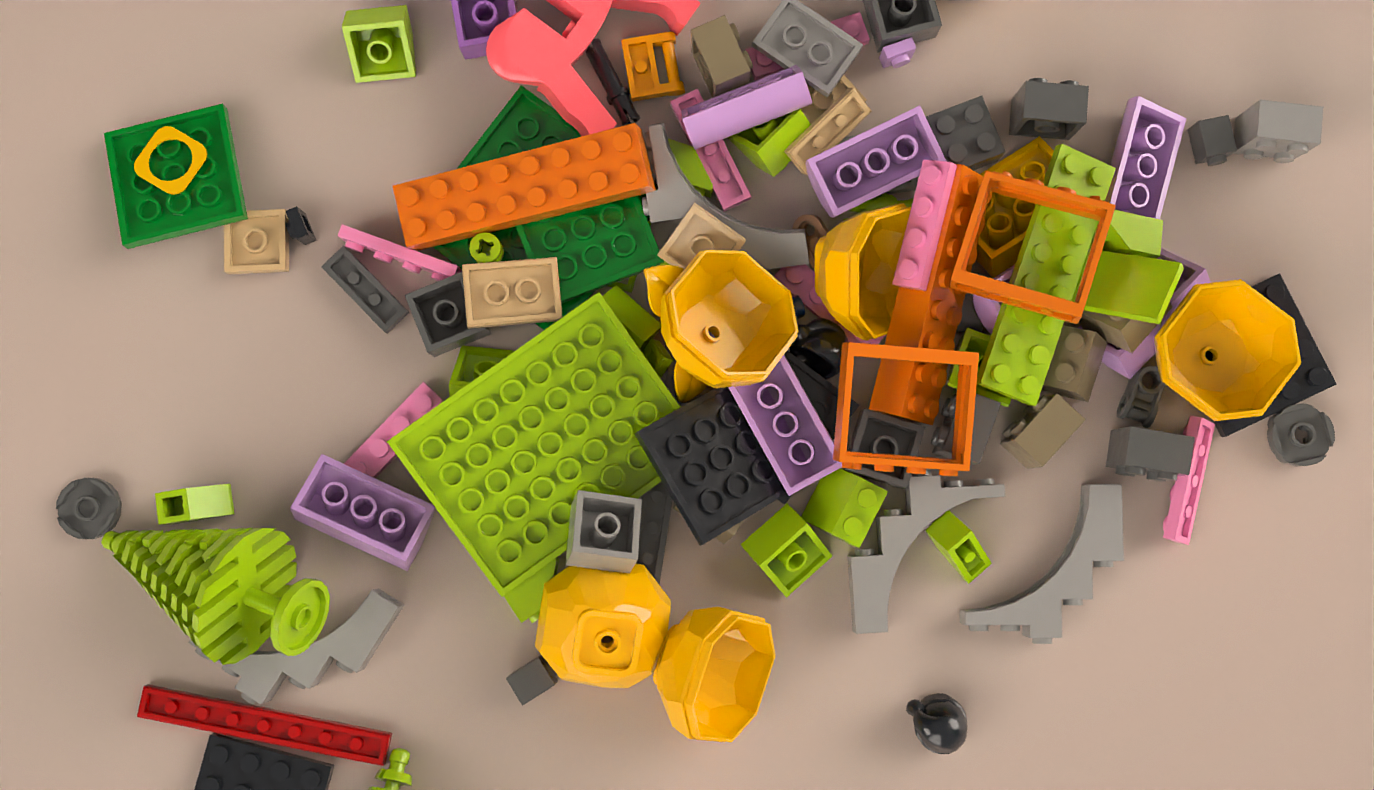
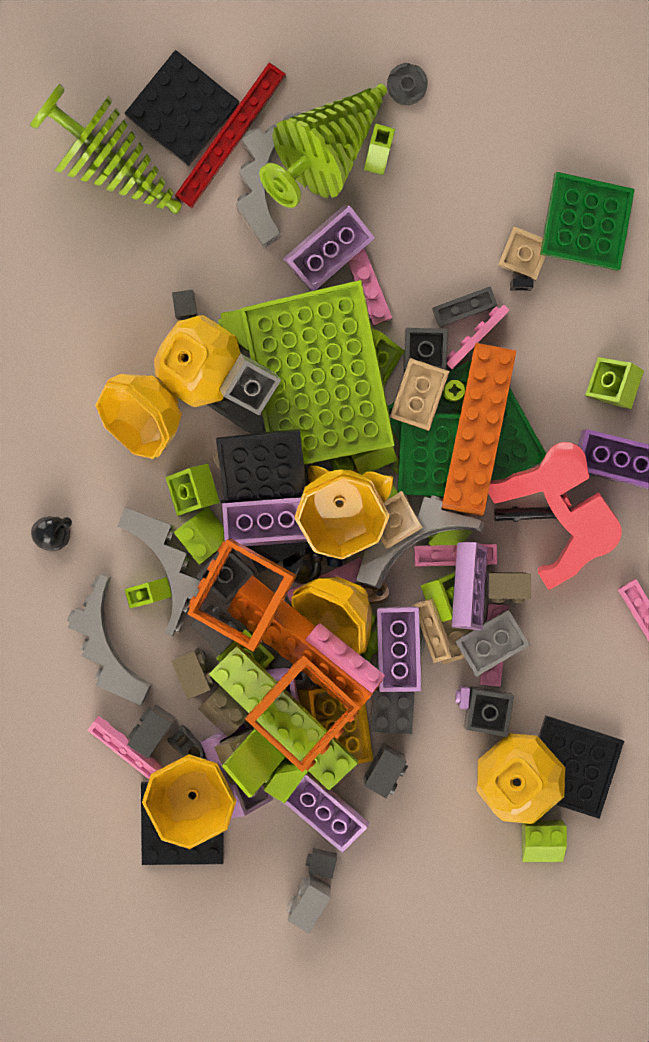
camera: 110 degrees right, 5 degrees up
(164, 134) = (579, 222): yellow piece -> none
(642, 67) = (527, 537): light orange plate -> none
(1316, 444) = (131, 821): dark grey plate -> none

